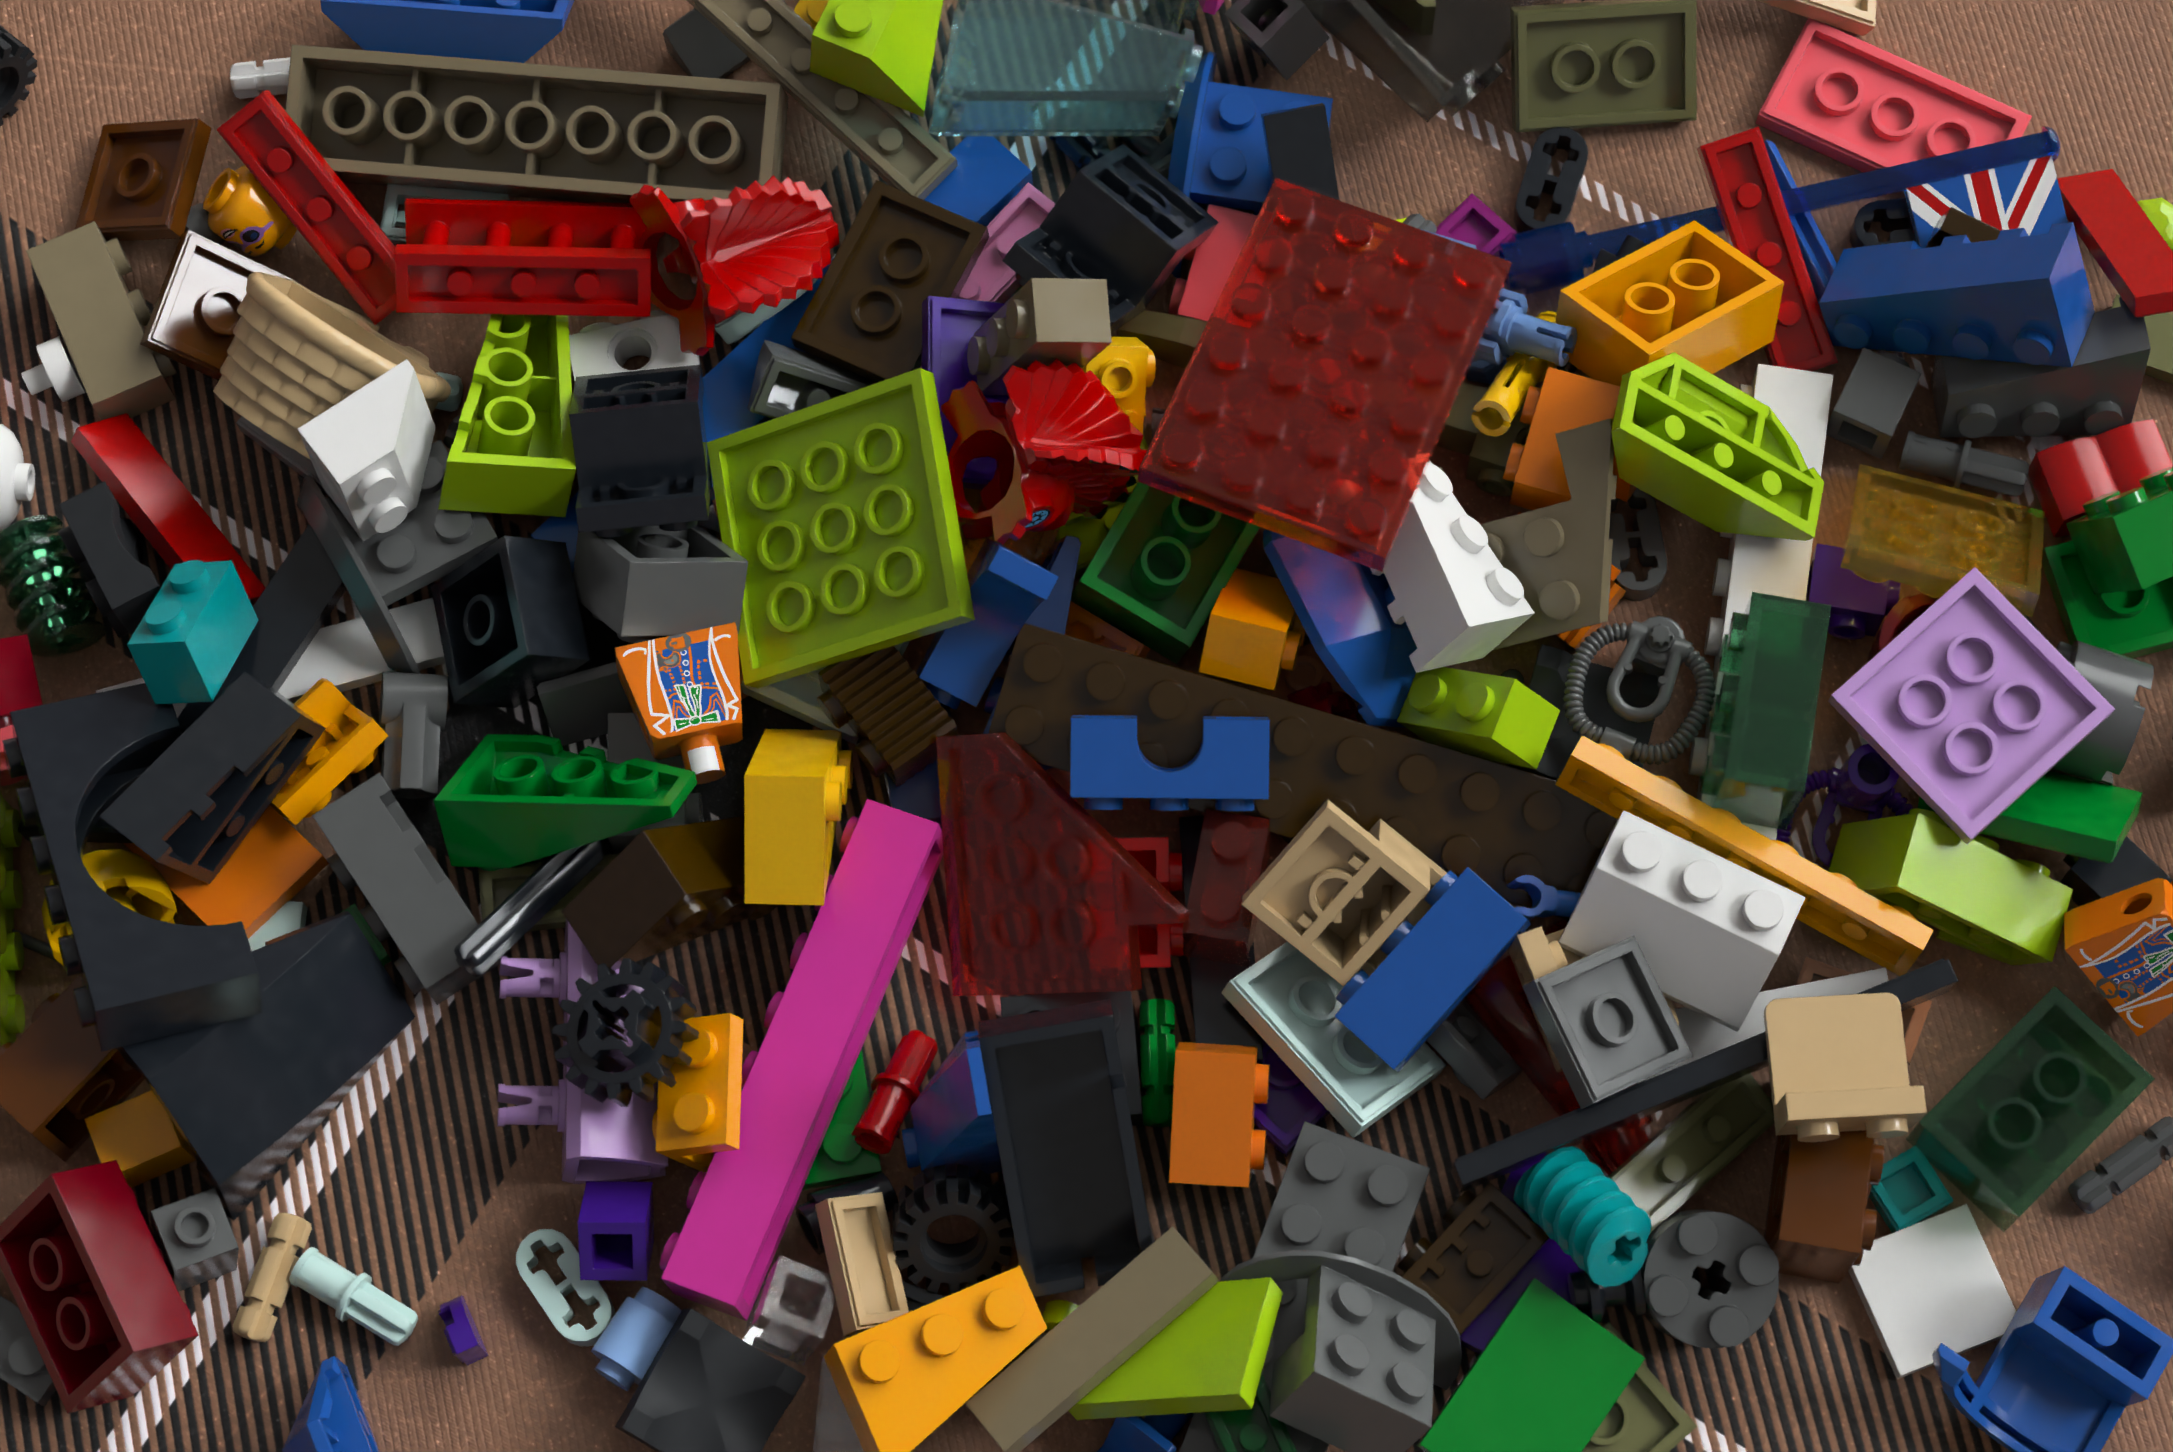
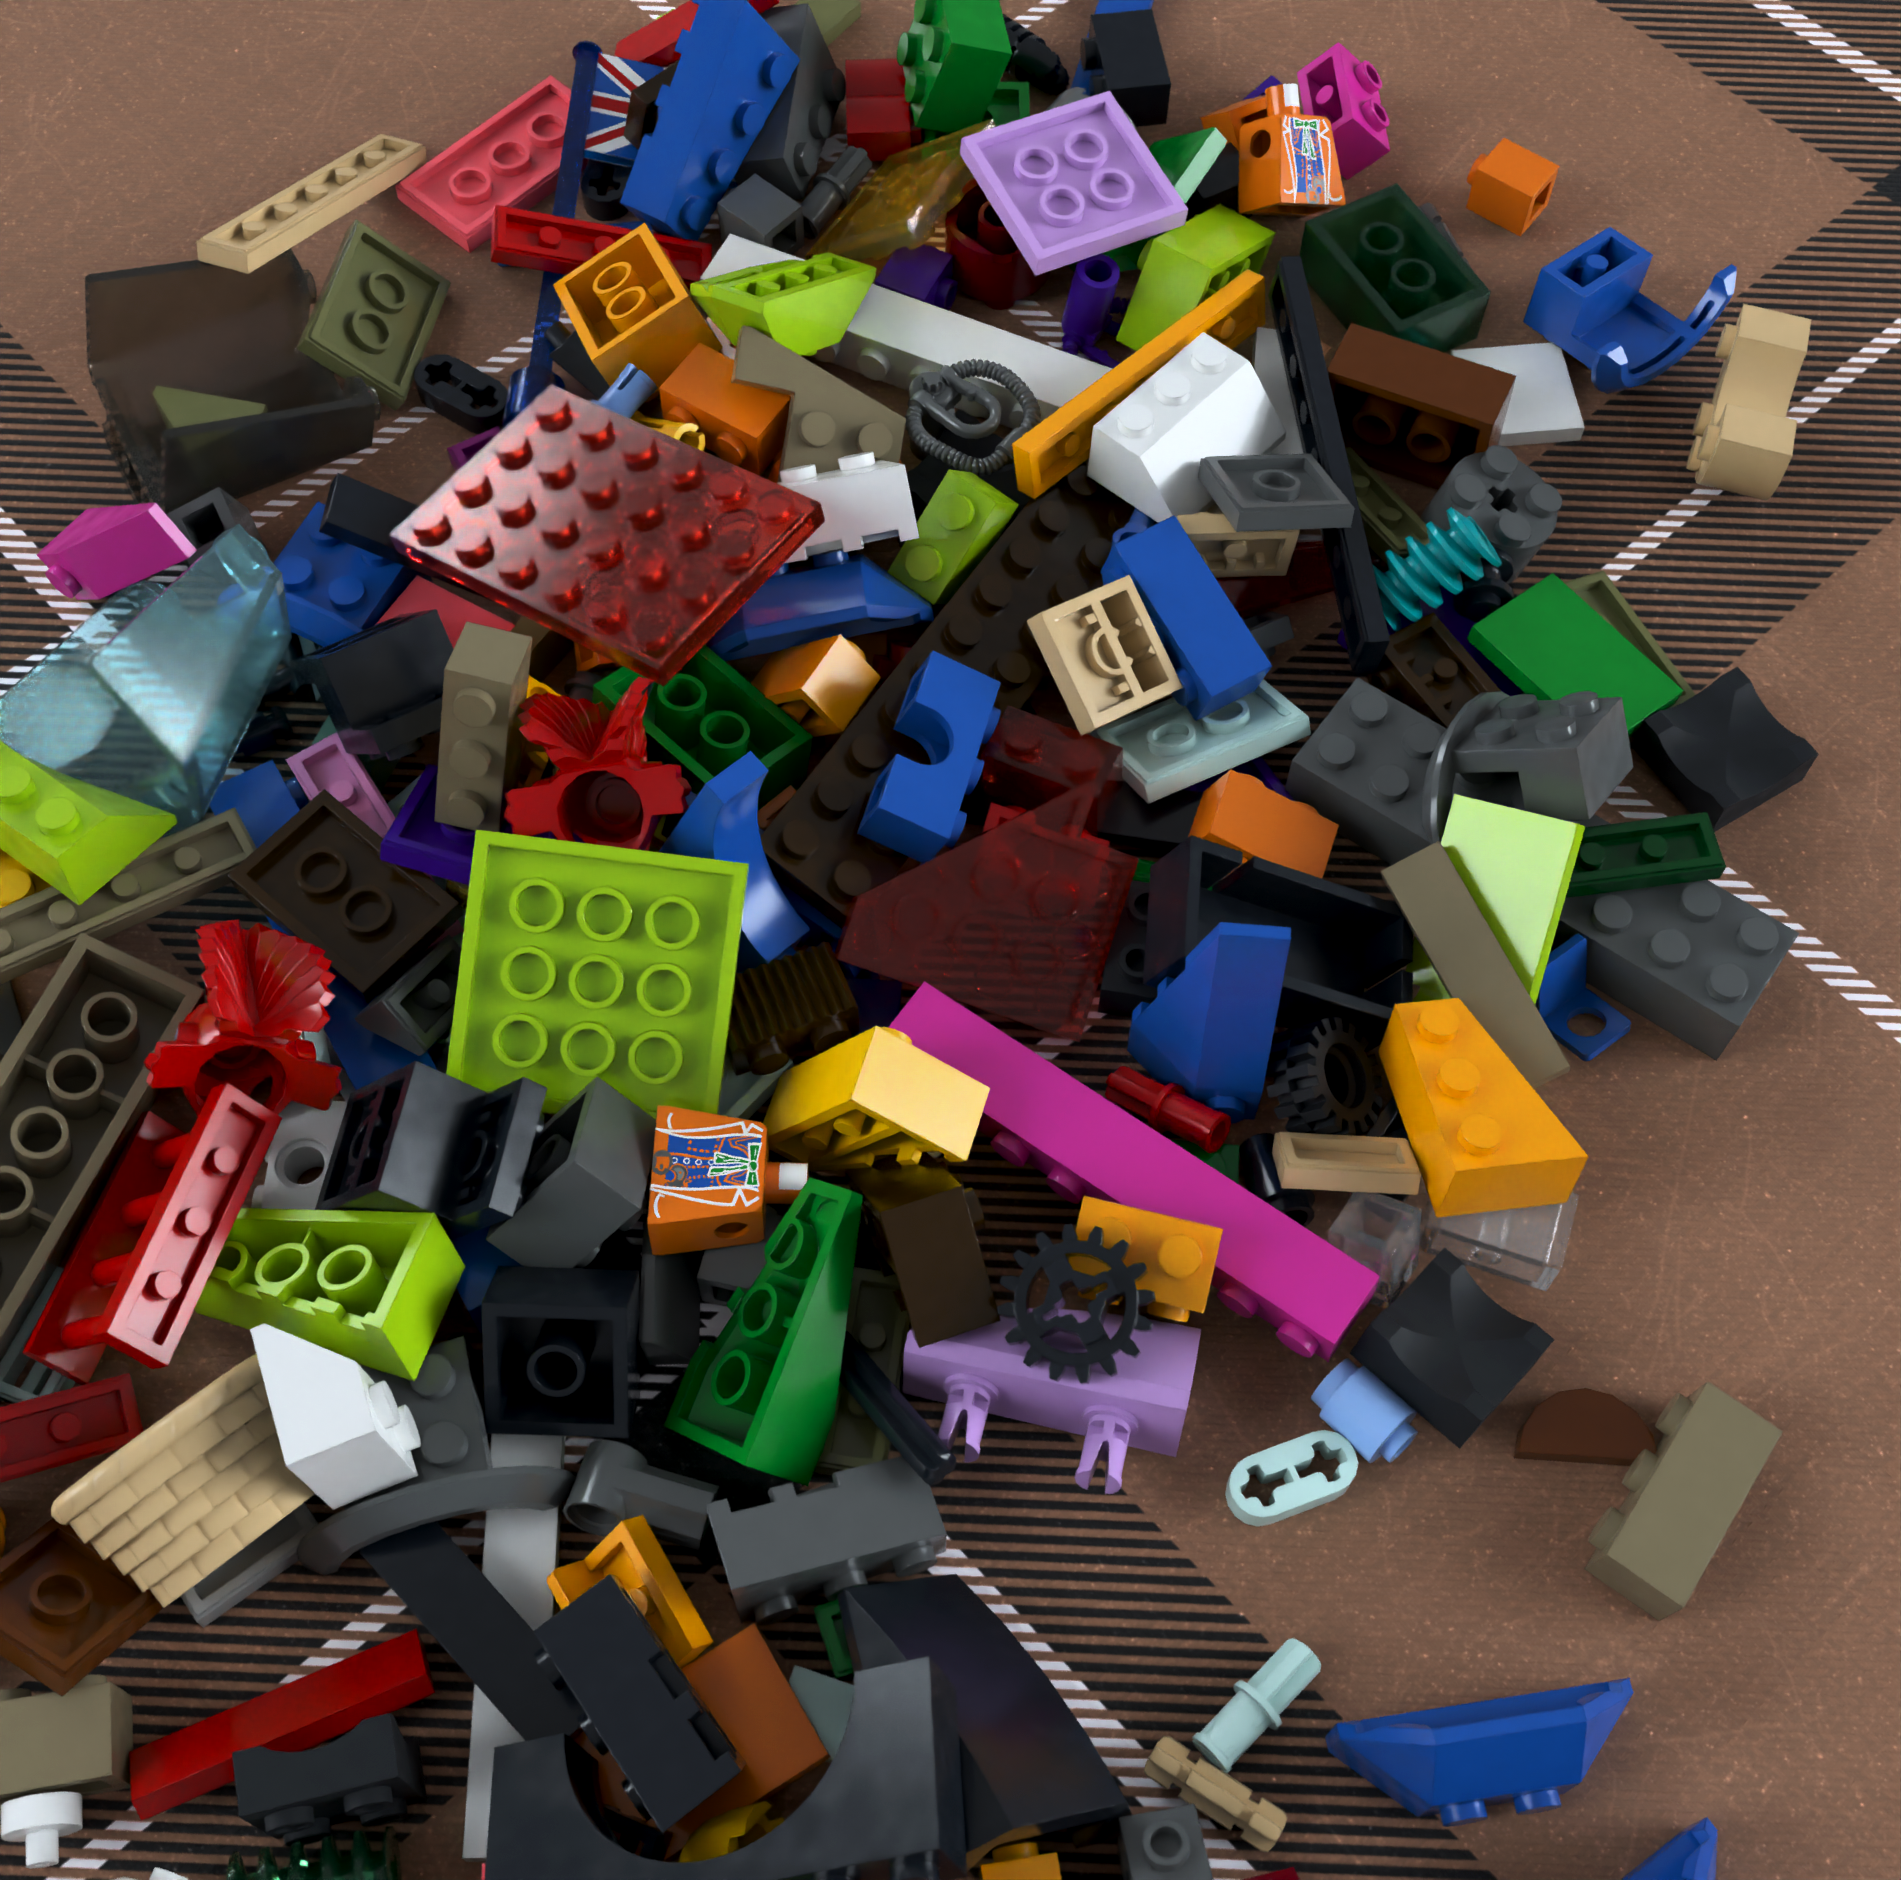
camera: 80 degrees left, 10 degrees down
(193, 632) = (458, 1690): teal brick -> none
(462, 1331) = (1317, 1592): dark purple tile -> none
(616, 1230) = (1255, 1398): dark purple brick -> none
(1766, 709) = (1029, 314): clear green brick -> none
(1840, 1067) = (1367, 340): tan bracket -> none

